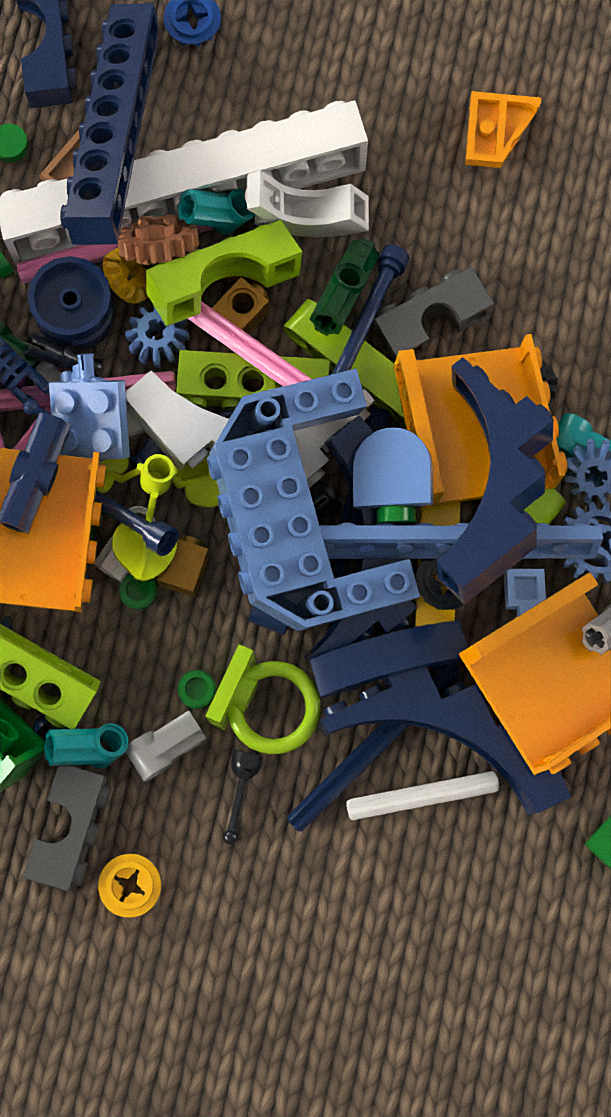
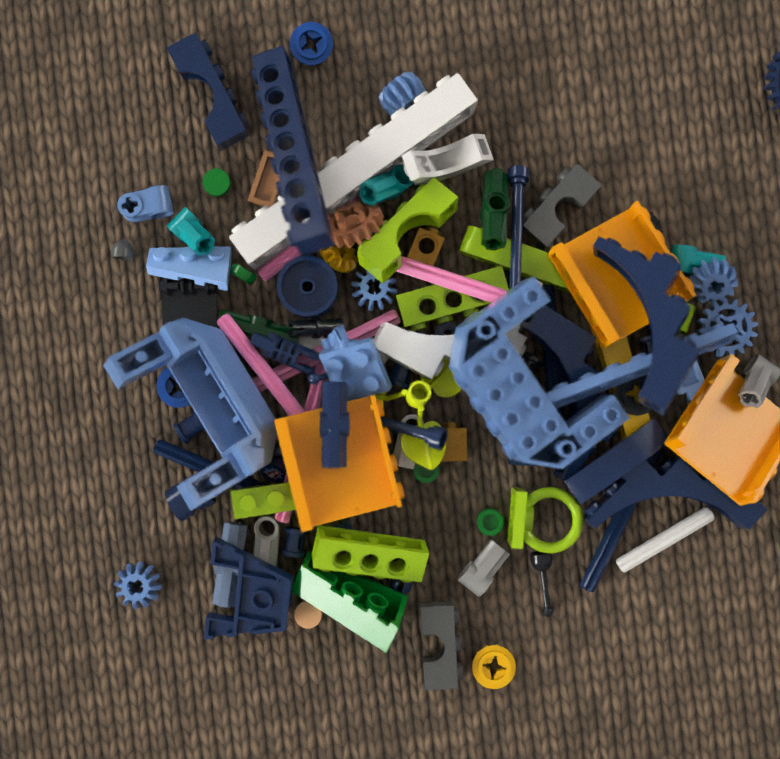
camera: 20 degrees left, 10 degrees up
(84, 746) = (432, 590): teal piece -> none
(278, 103) = (401, 92): none -> medium blue gear
(392, 470) = (580, 336): medium blue tile -> none
(397, 514) = (591, 365): green tile -> none
(496, 126) = (555, 50): light orange wing -> none

